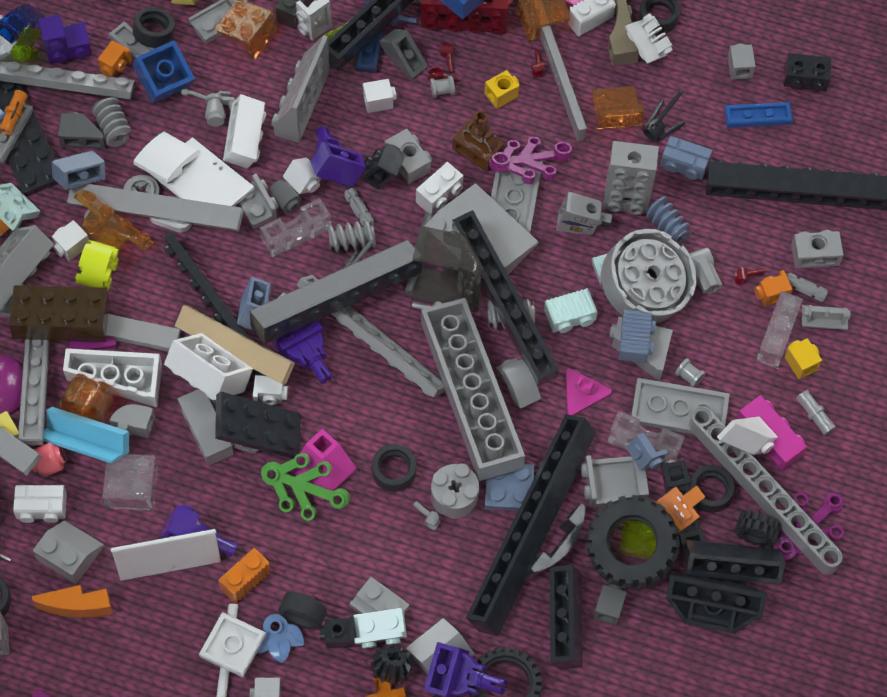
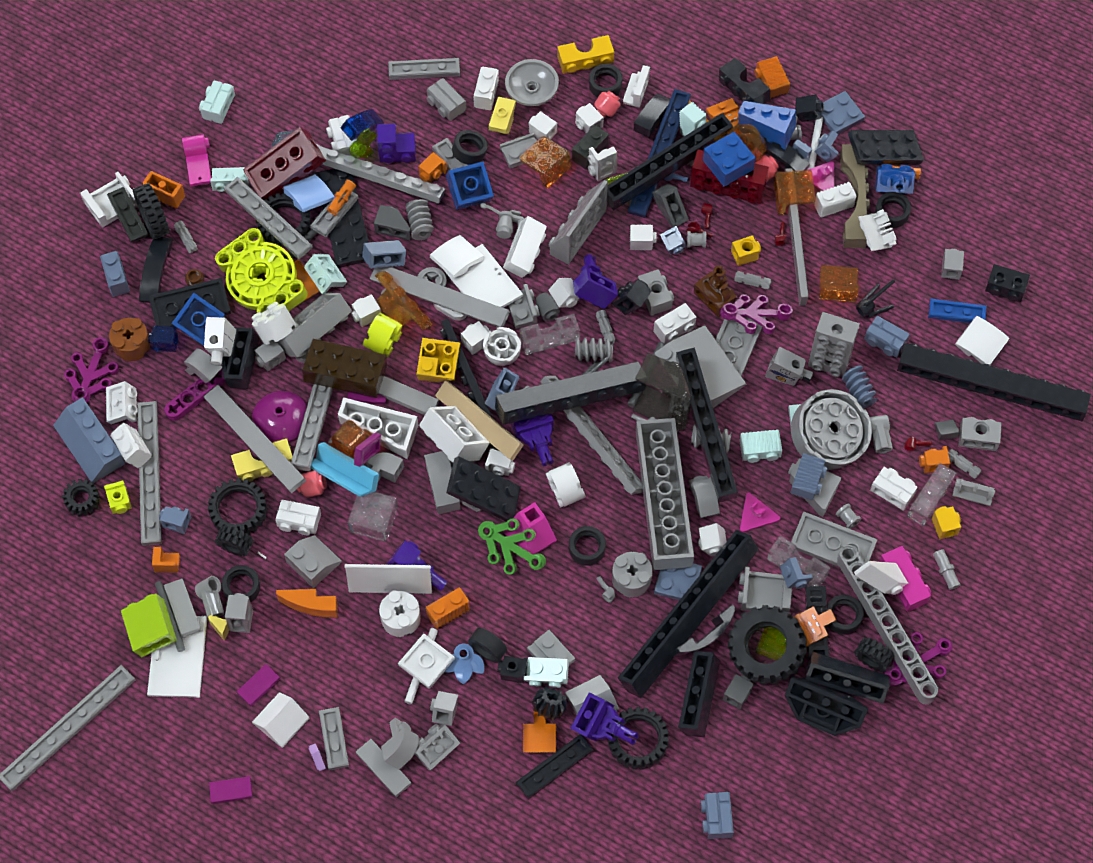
camera: 15 degrees right, 0 degrees up
(108, 404) = (367, 449): none -> magenta tile
(169, 283) = (437, 360): none -> yellow slope
(180, 583) = (398, 603): none -> white brick
(208, 247) = (474, 337): none -> white brick
(242, 252) = (502, 346): none -> white cylinder
(353, 401) = (565, 485): none -> white brick
(416, 93) = (673, 241): none -> bracket
(517, 121) = (753, 280): none -> light grey axle
(539, 431) = (712, 539): none -> white brick
(734, 330) = (894, 488): none -> white brick
(778, 252) = (946, 430): none -> dark grey slope
(794, 142) = (982, 341): none -> white slope

